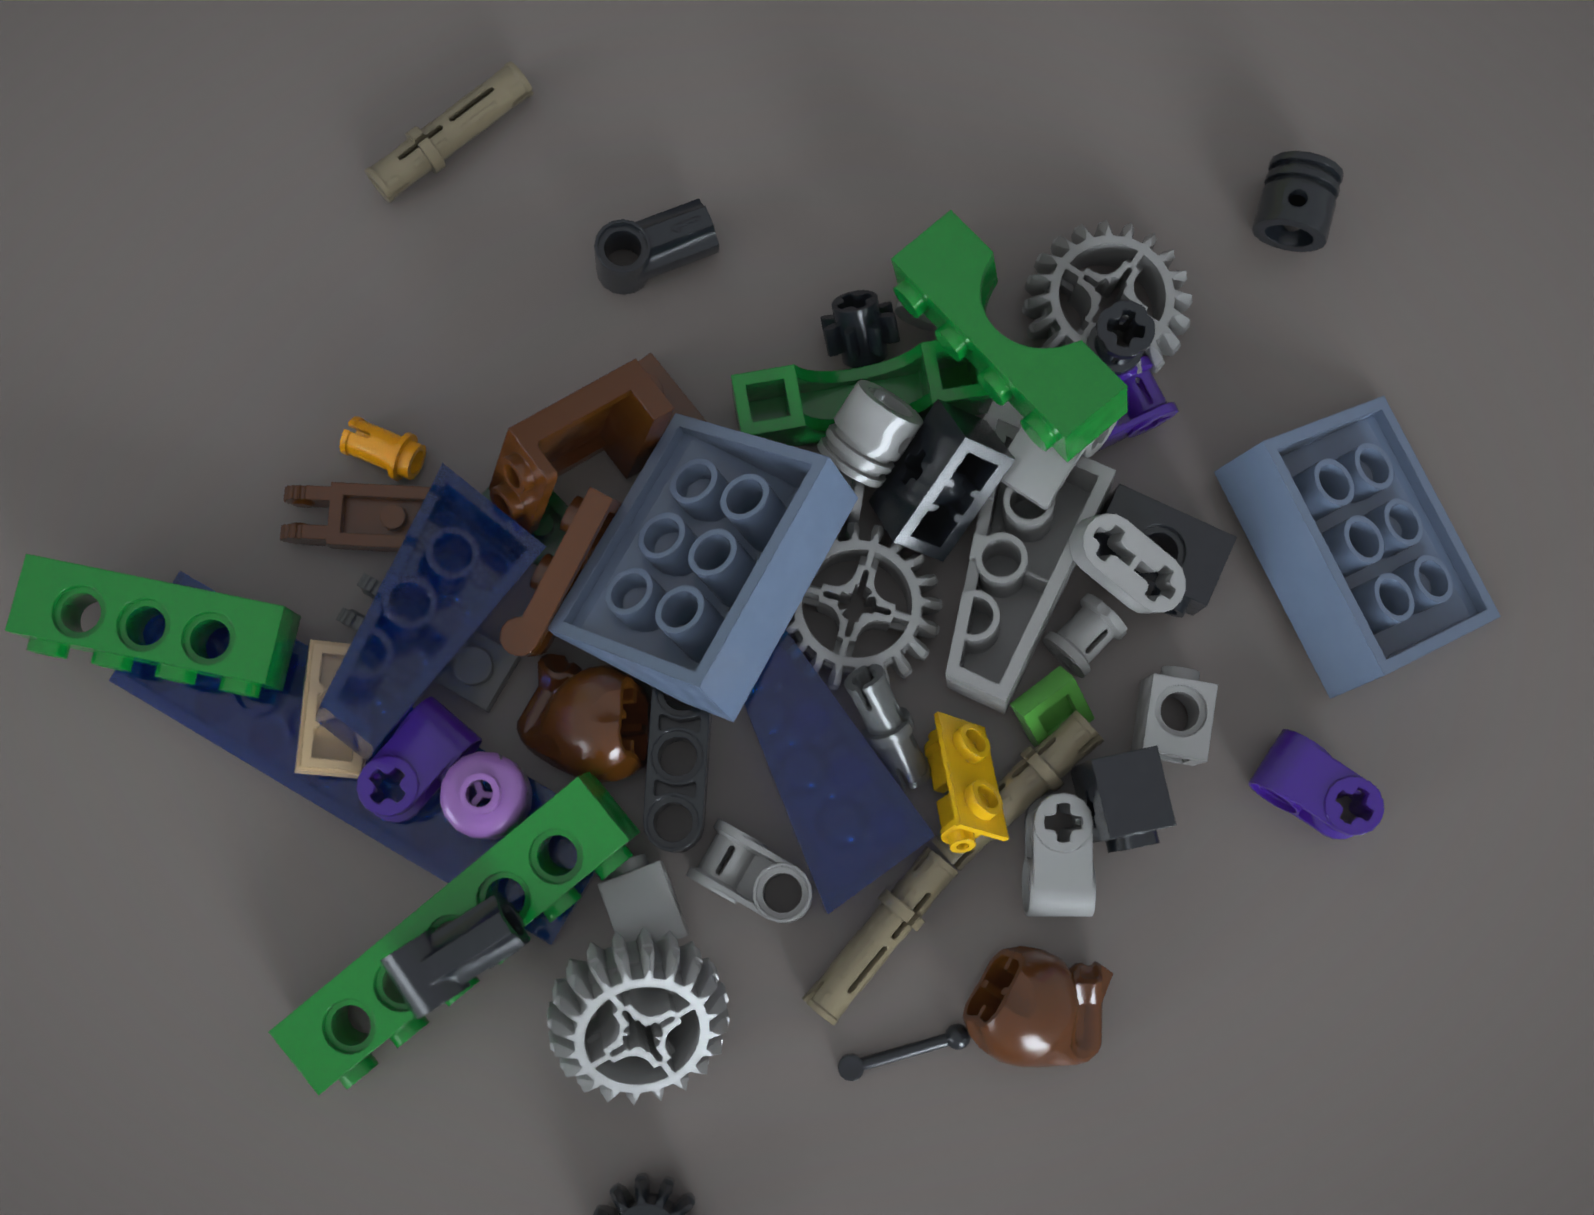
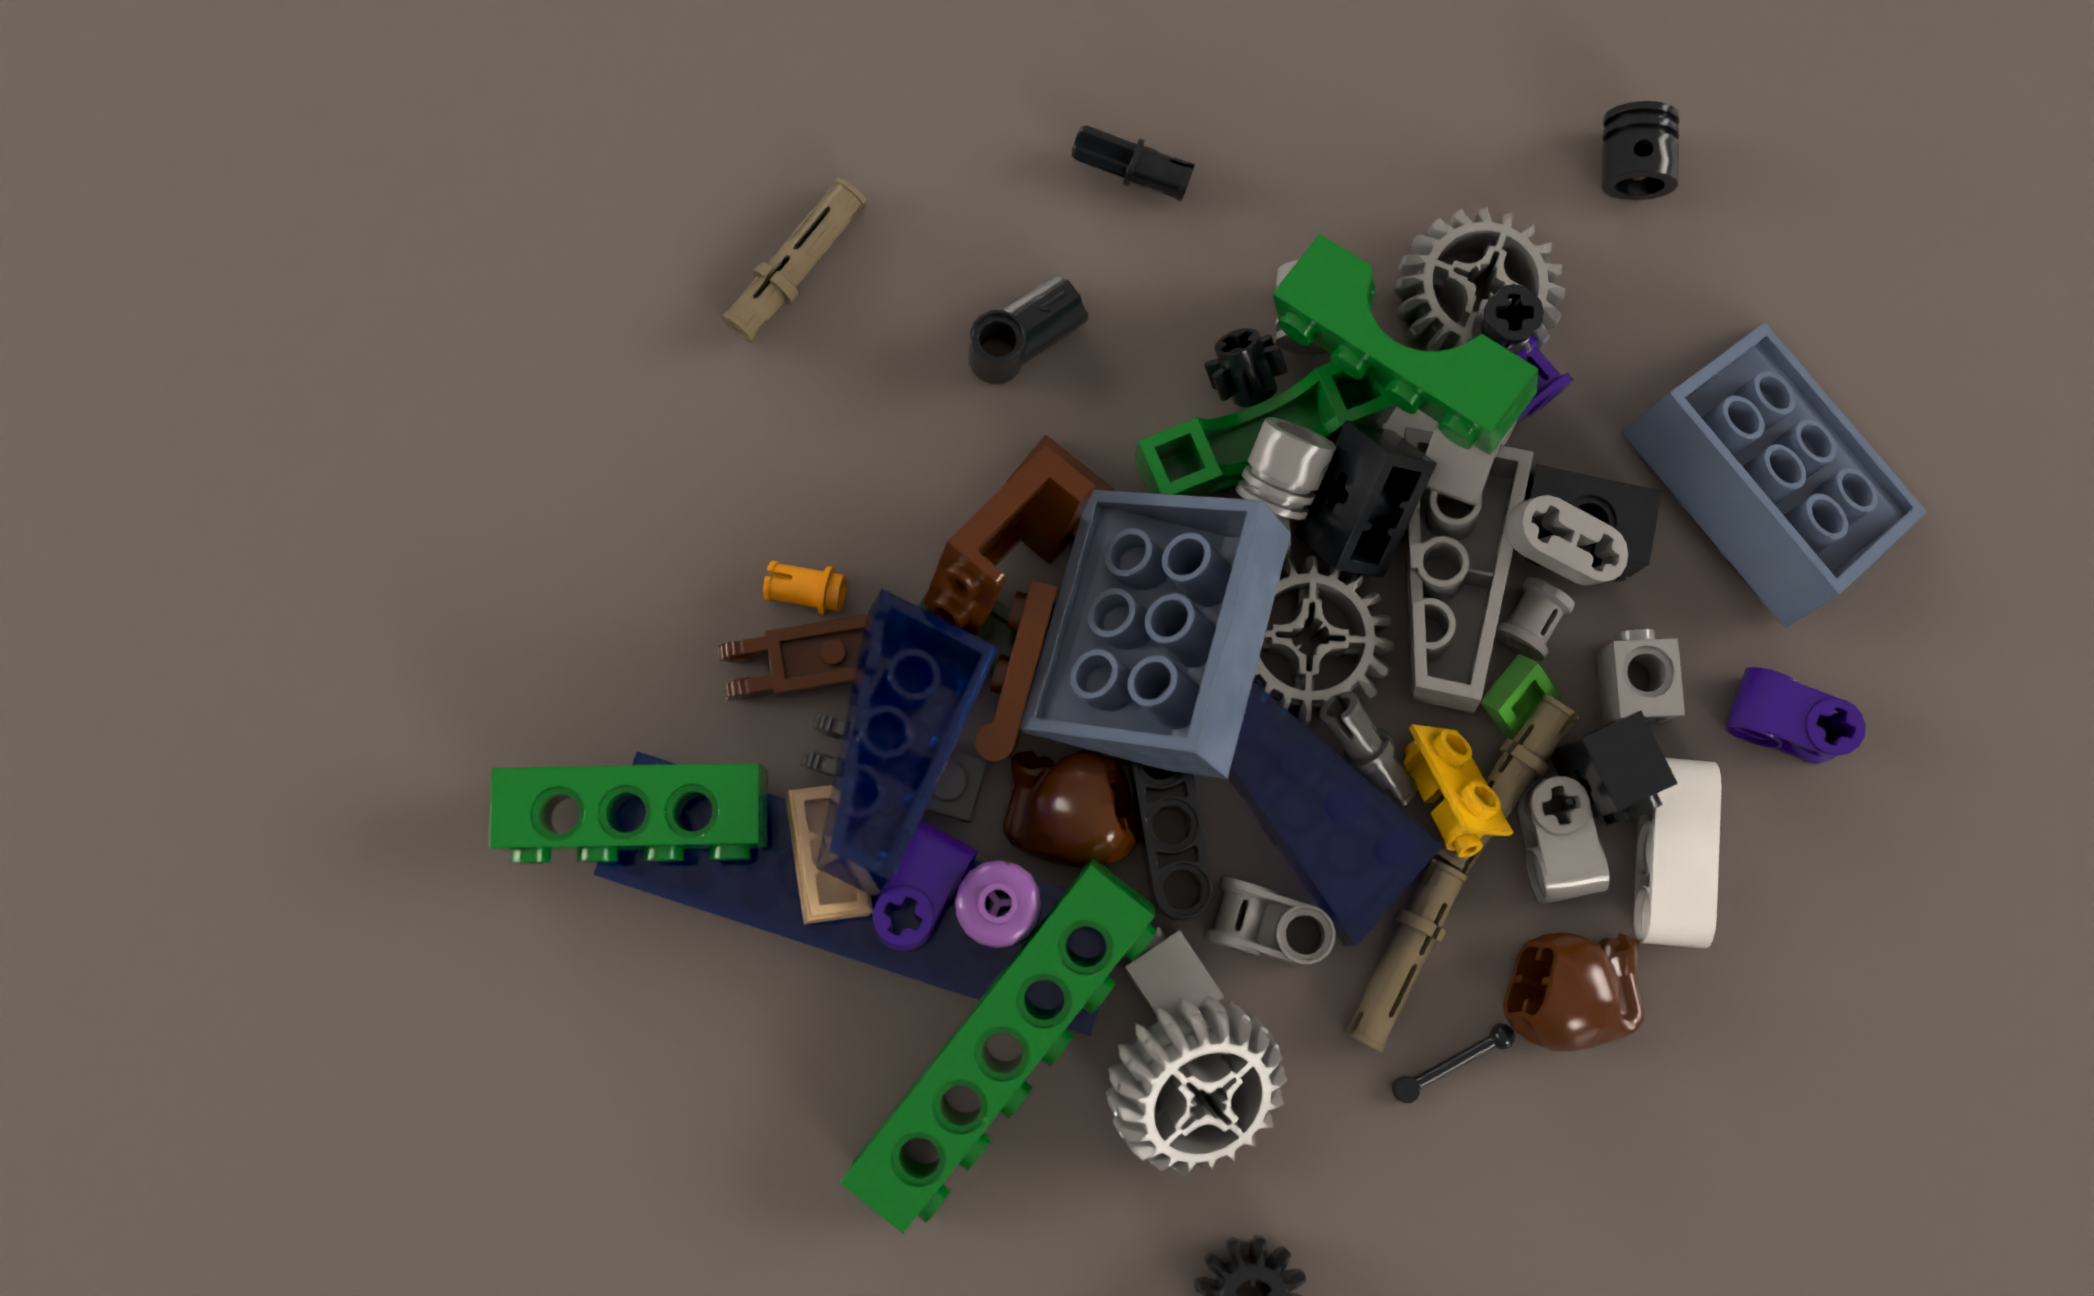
camera: 10 degrees left, 0 degrees up
(444, 960) = (999, 1077): black piece -> none
(800, 107) = (1132, 162): none -> black axle
(1172, 899) = (1680, 860): none -> white beam

